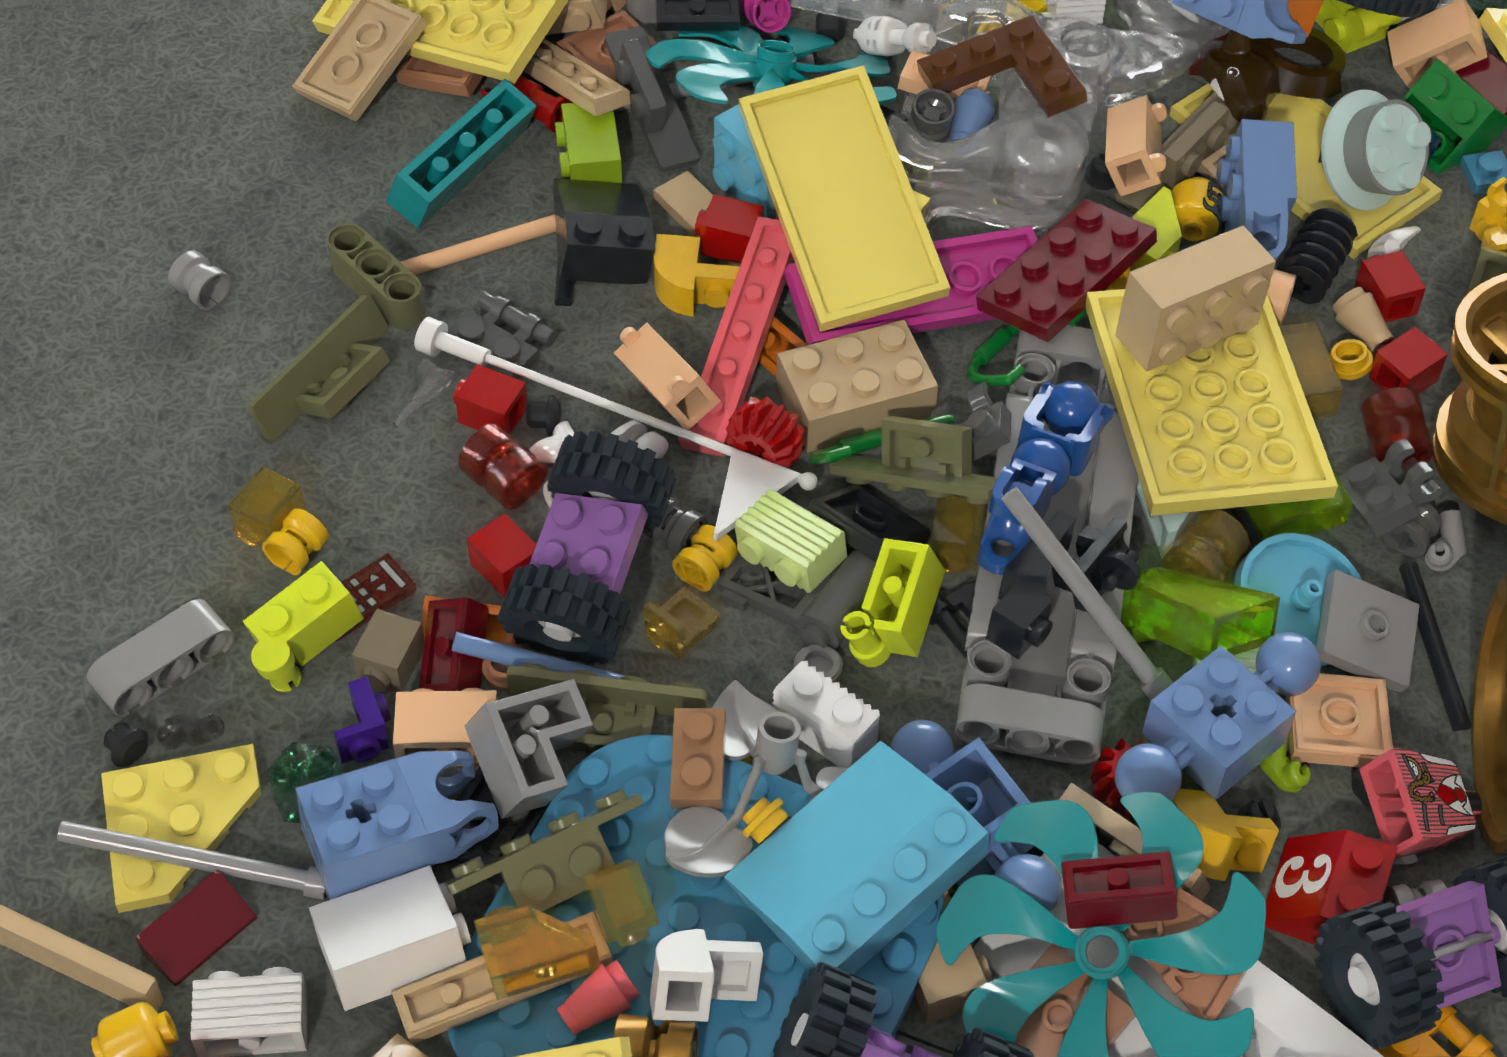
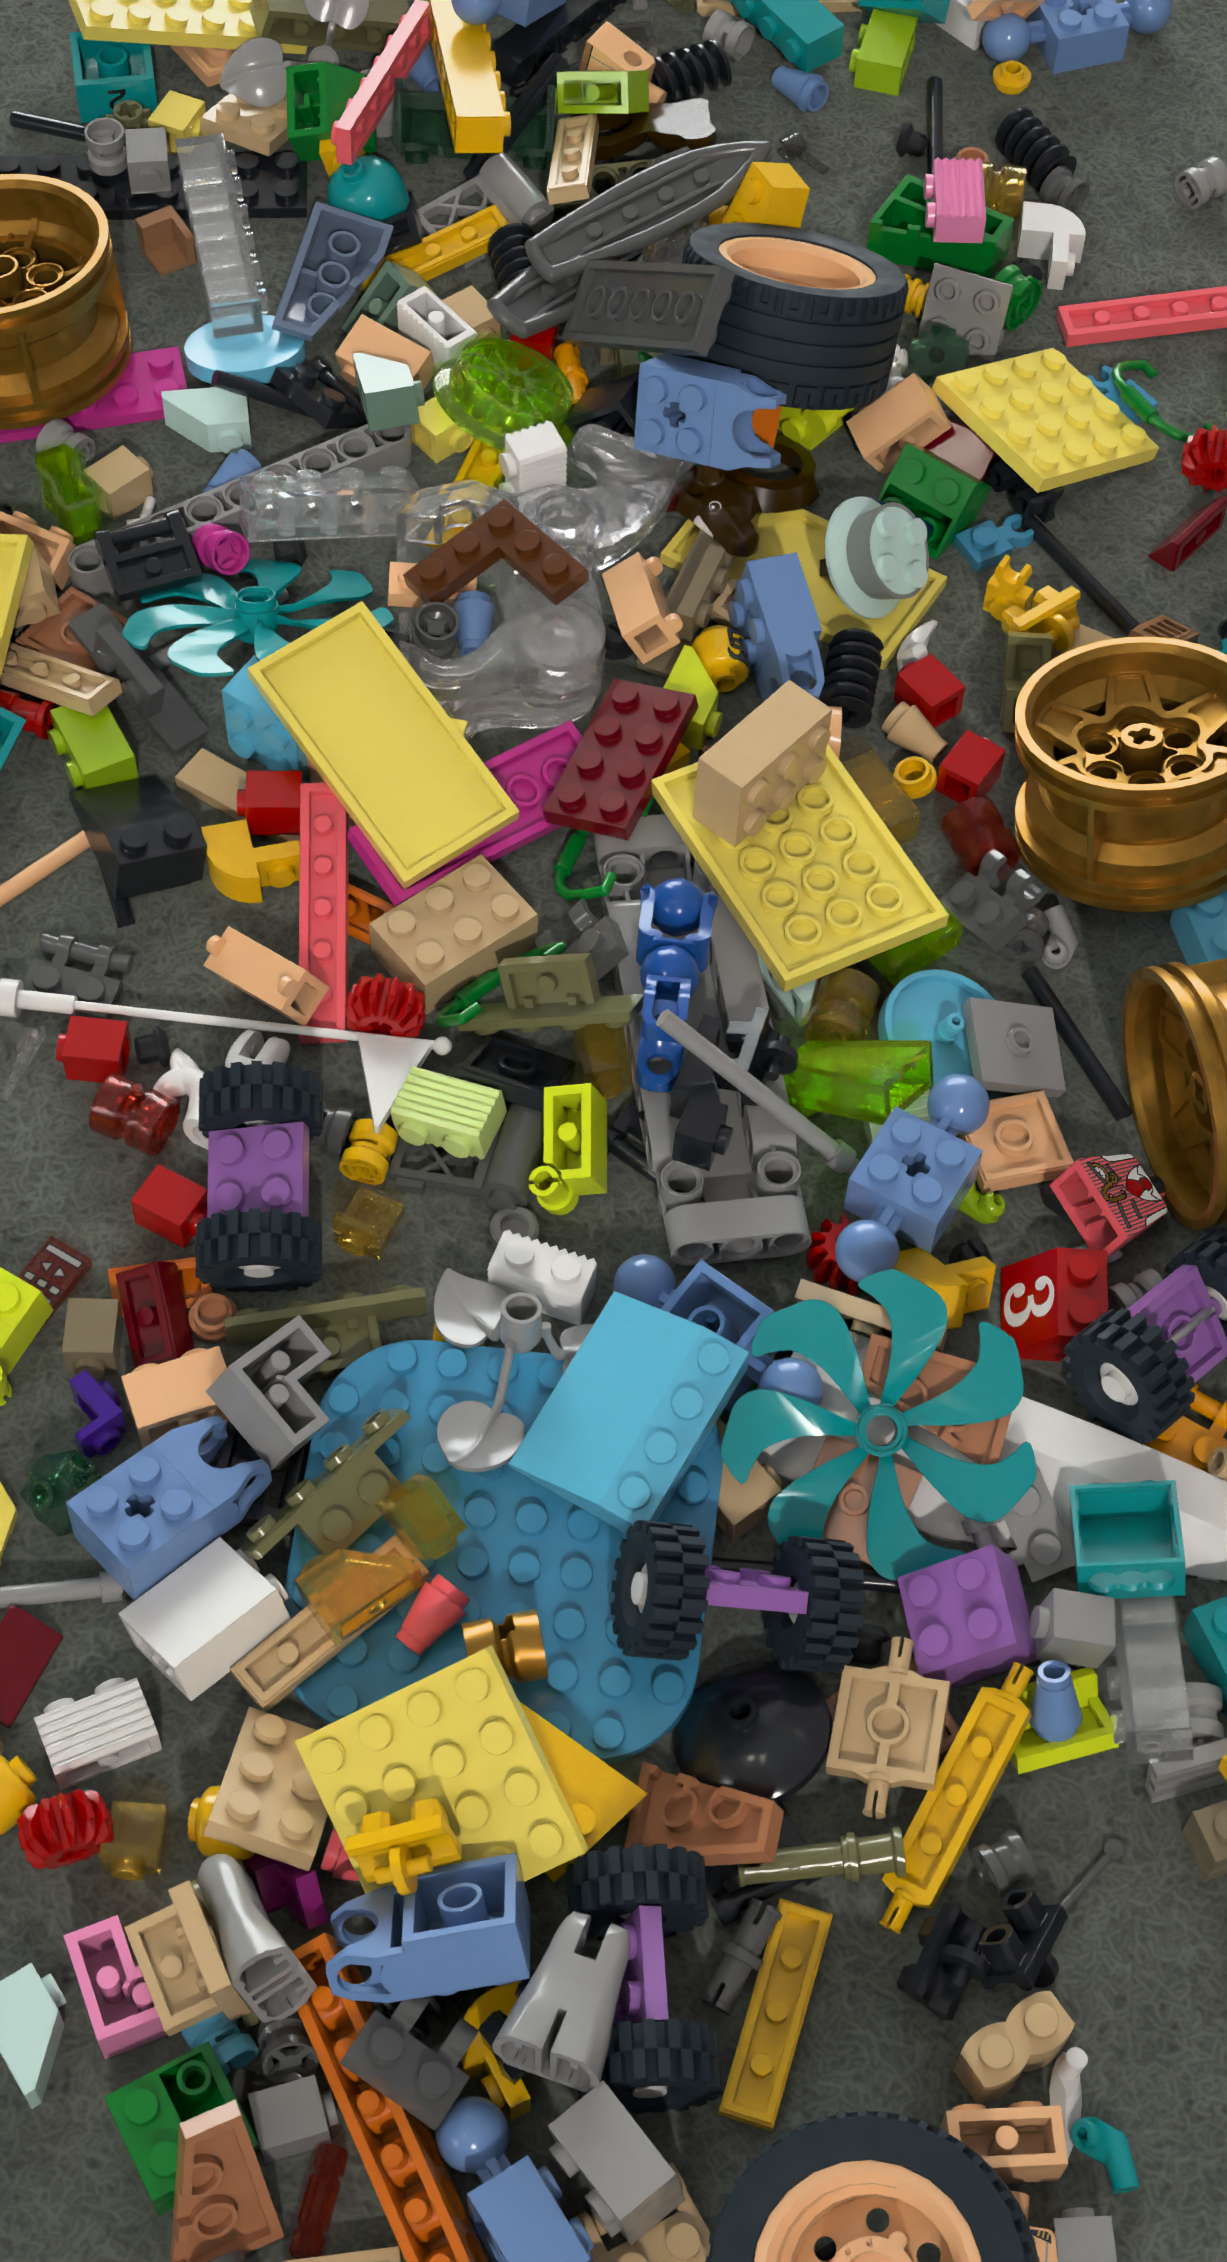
camera: 20 degrees left, 5 degrees up
(516, 656) = (228, 1306): medium blue bar -> none
(695, 970) = (520, 1561): white brick -> none
(698, 758) = (442, 1356): medium nougat plate -> none
(764, 819) = (528, 1398): yellow plate -> none
(891, 36) = (359, 549): white piece -> none
(1119, 890) = (882, 1369): dark red slope -> none

